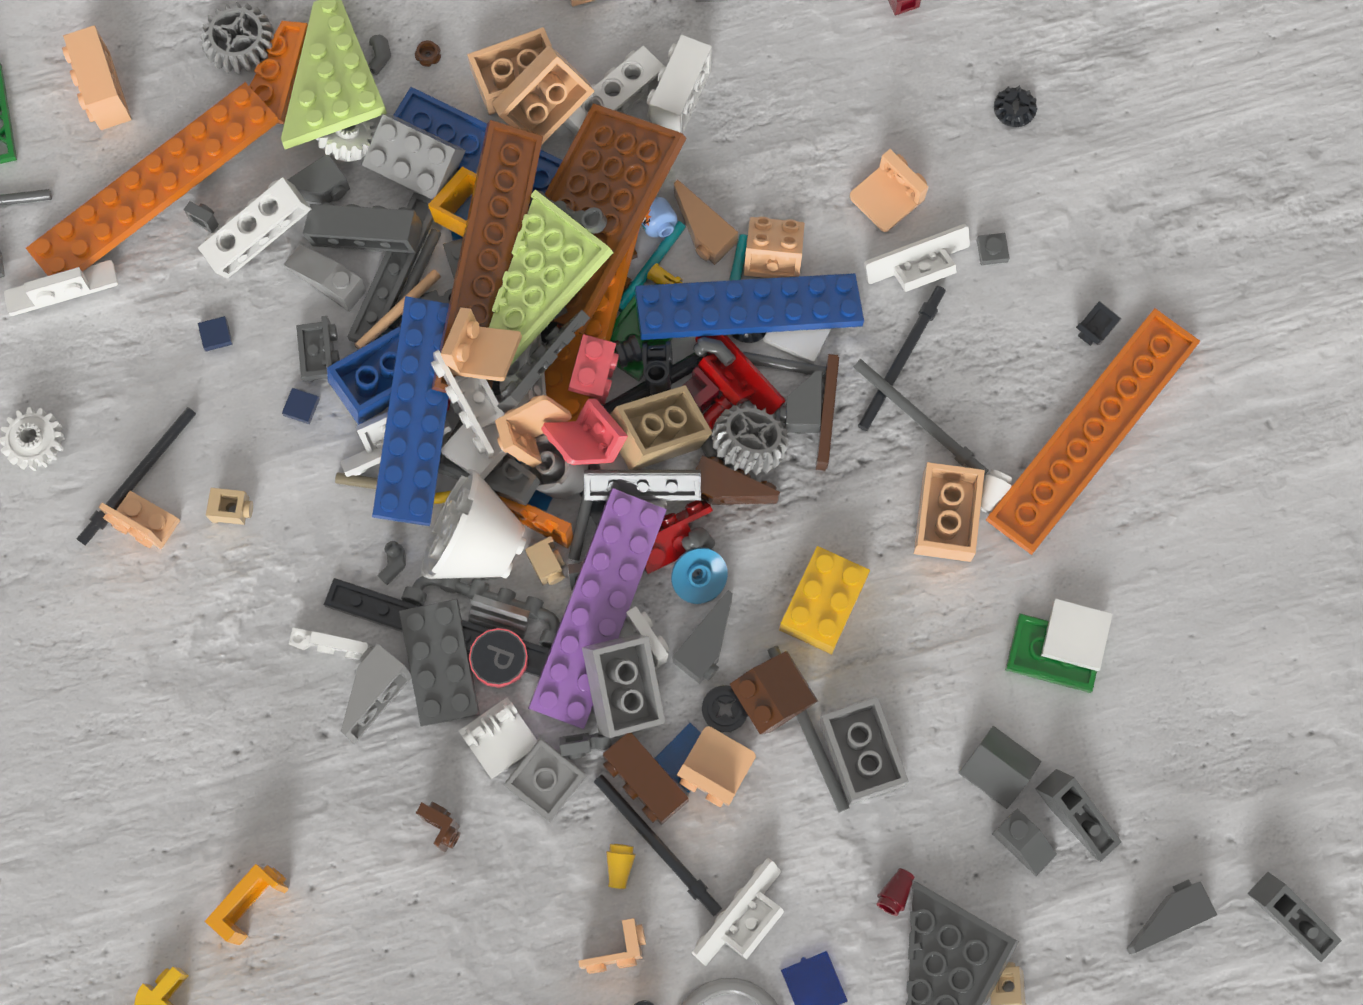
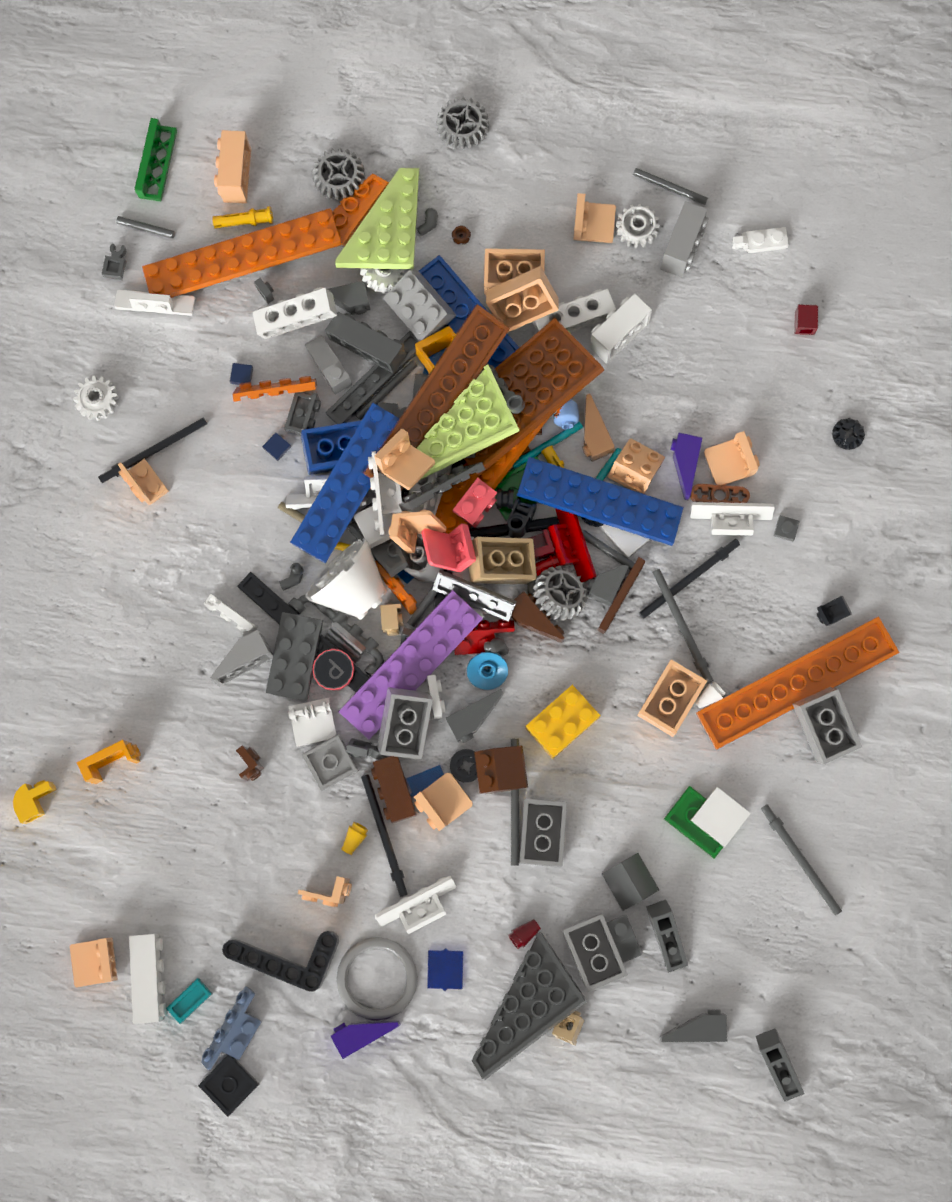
camera: 30 degrees right, 5 degrees up
(147, 132) = (251, 217): none -> yellow pin
(222, 499) = (197, 492): tan brick -> none
(255, 335) = (273, 389): none -> orange wing
(397, 310) = (364, 408): light nougat bar -> none
(716, 347) = (565, 520): dark grey arm -> none
(832, 215) = (685, 458): none -> dark purple slope
(898, 231) = (706, 487): none -> dark orange beam
(998, 875) = (594, 952): none -> light grey brick
(1149, 616) = (777, 824): none -> dark grey bar
(1156, 464) = (827, 725): none -> light grey brick

